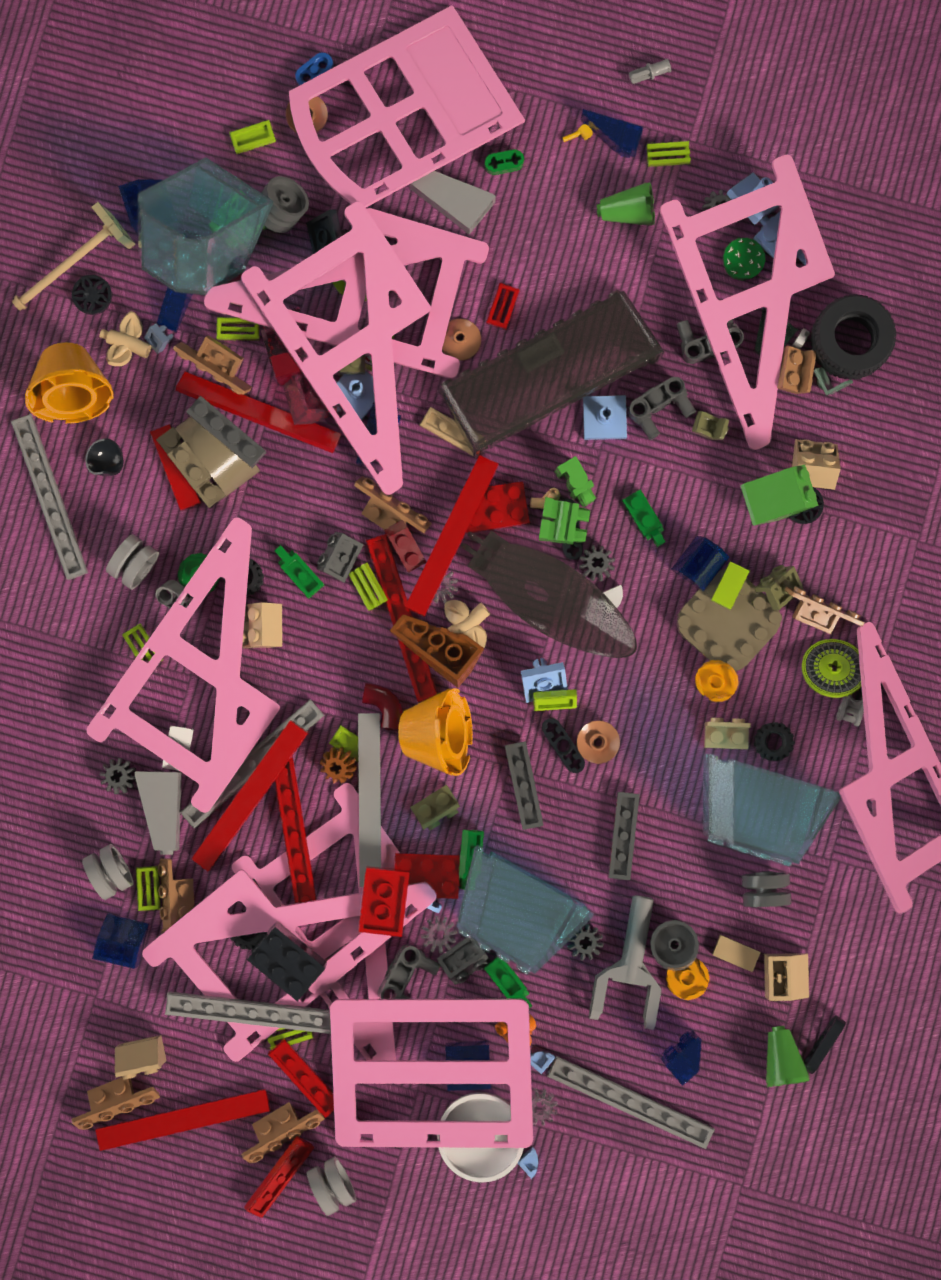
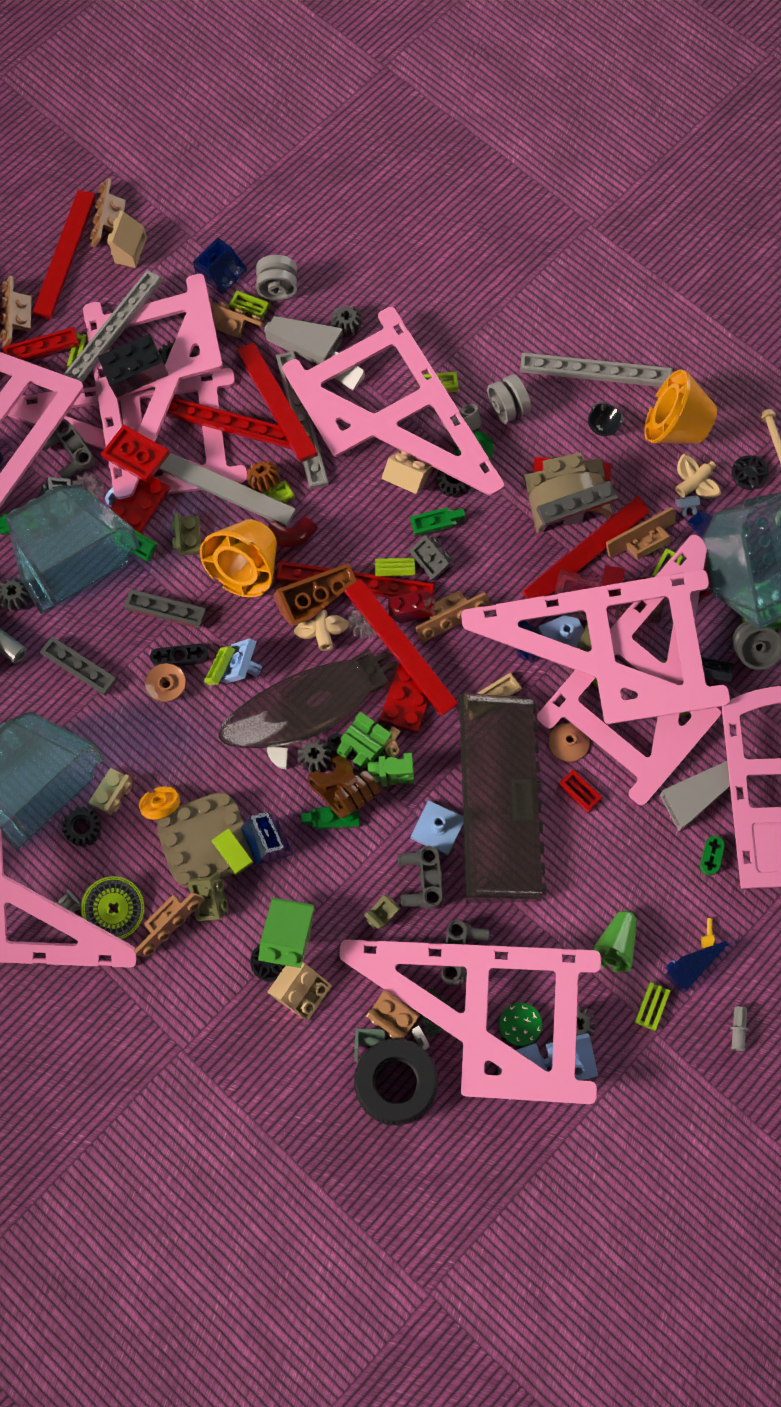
camera: 120 degrees right, 15 degrees down
(618, 515) = (342, 788): none -> reddish brown piece

